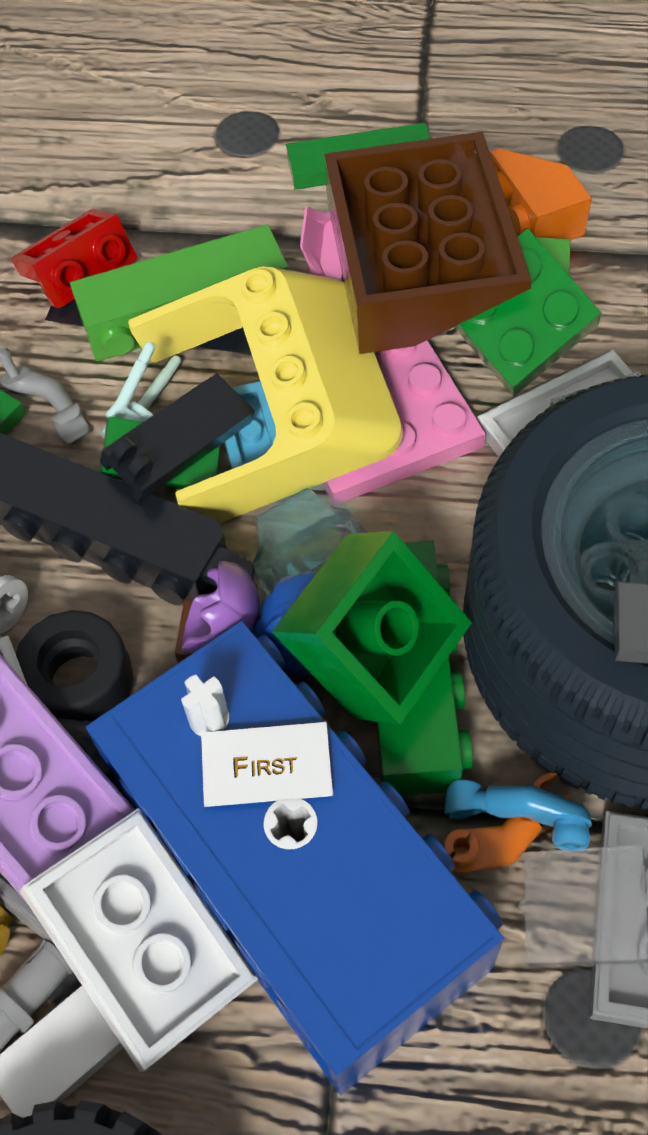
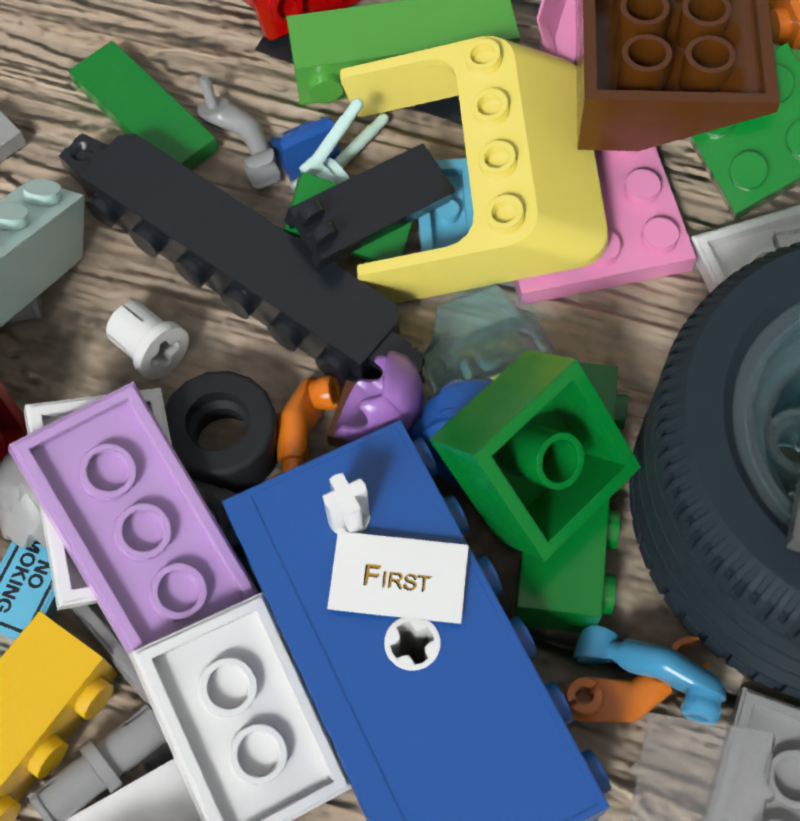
camera: 10 degrees right, 5 degrees up
(101, 395) = (300, 143): none -> blue slope
(148, 639) = (301, 416): none -> orange arm

